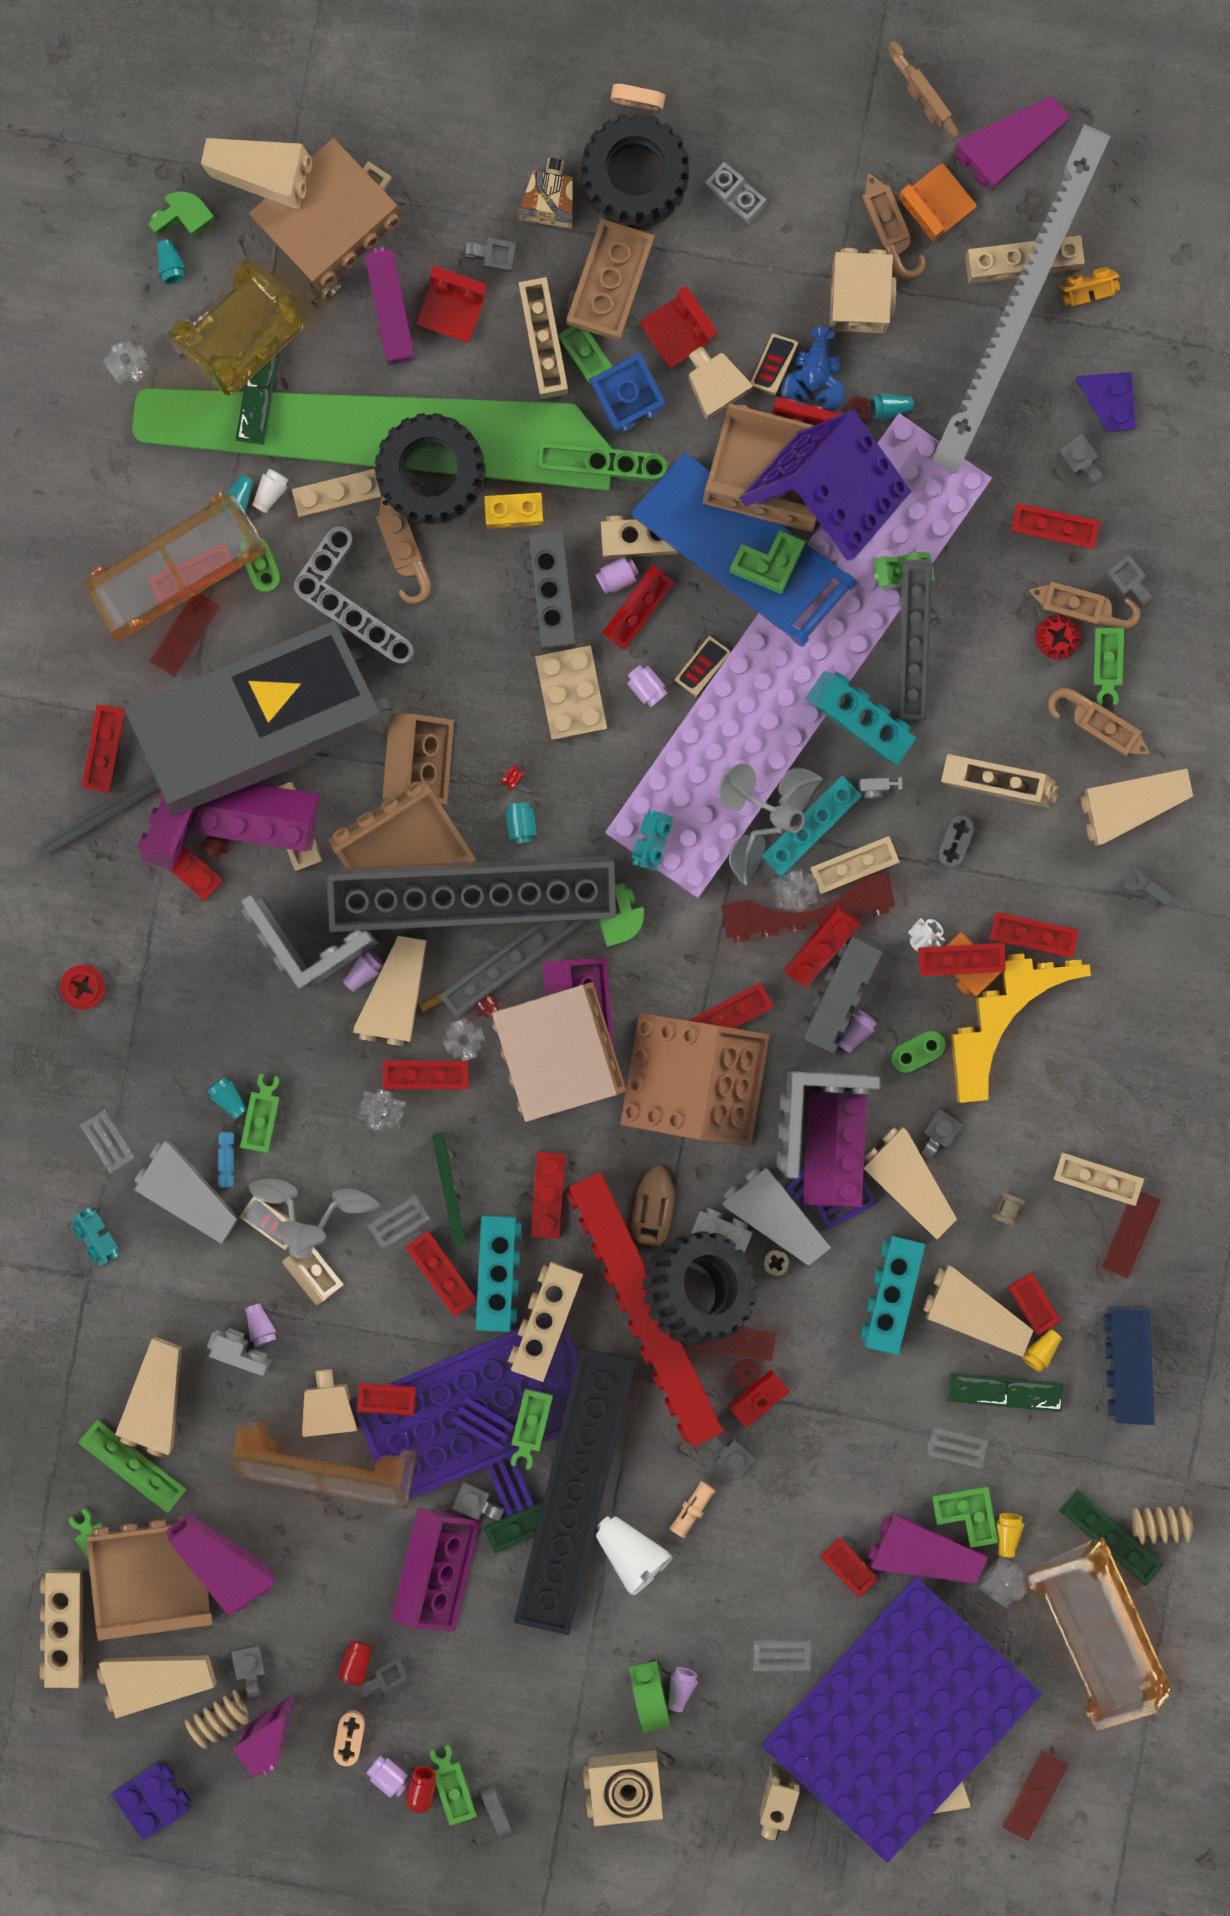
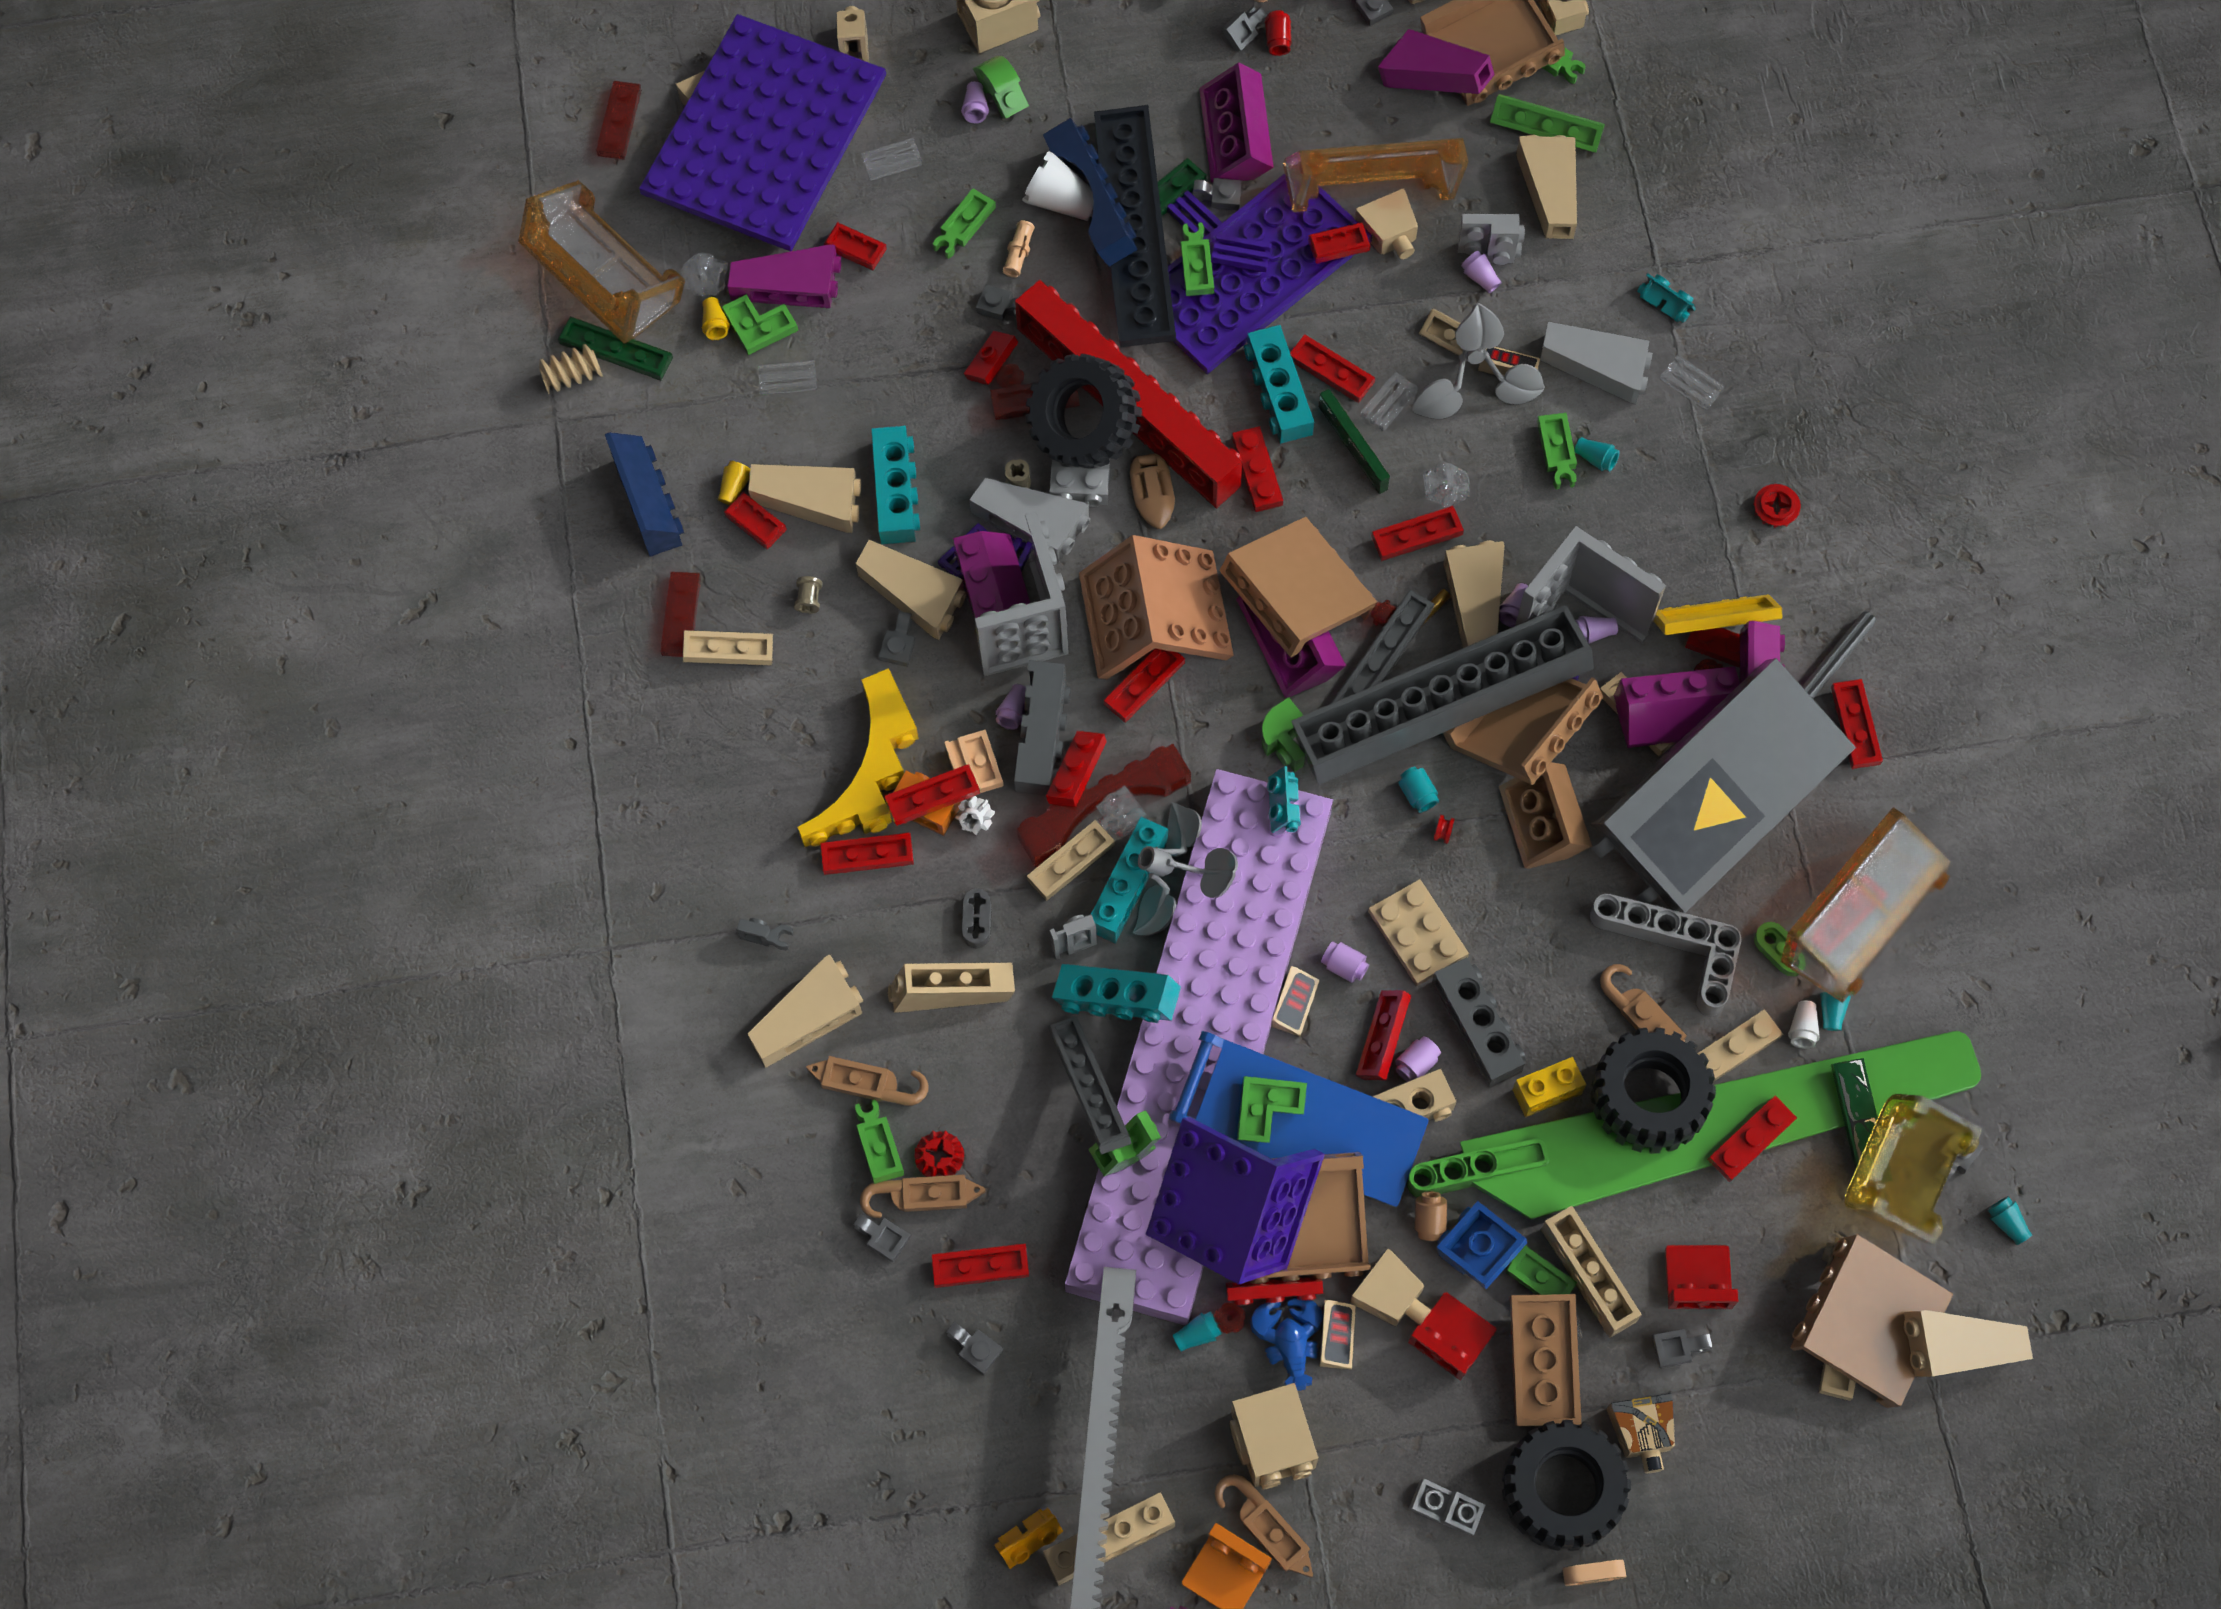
camera: 165 degrees right, 20 degrees down
(119, 356) = (2006, 1098): clear brick -> none
(185, 209) = (2016, 1279): bright green brick -> none
(185, 634) = (1826, 852): clear red plate -> none
(190, 887) = (1717, 614): none -> yellow hinge
(225, 1159) = (1574, 401): dark azure axle -> none
(302, 922) = (1597, 628): none -> lavender cone
(358, 405) = (1752, 1138): none -> red plate
(389, 306) = (1764, 1251): magenta slope -> none
(475, 1039) = (1393, 572): clear brick -> none
(537, 1365) = (1213, 392): tan brick -> none
(605, 1481) = (1107, 230): none -> dark blue arch
(659, 433) = (1430, 1216): none -> medium nougat brick
(734, 1557) = (964, 222): none -> bright green plate
(908, 991) = (978, 753): none -> light nougat plate
(919, 1053) = (948, 710): bright green plate -> none
(1005, 1392) = (757, 438): dark green tile -> none
(1111, 399) = (965, 1423): dark purple wing -> none

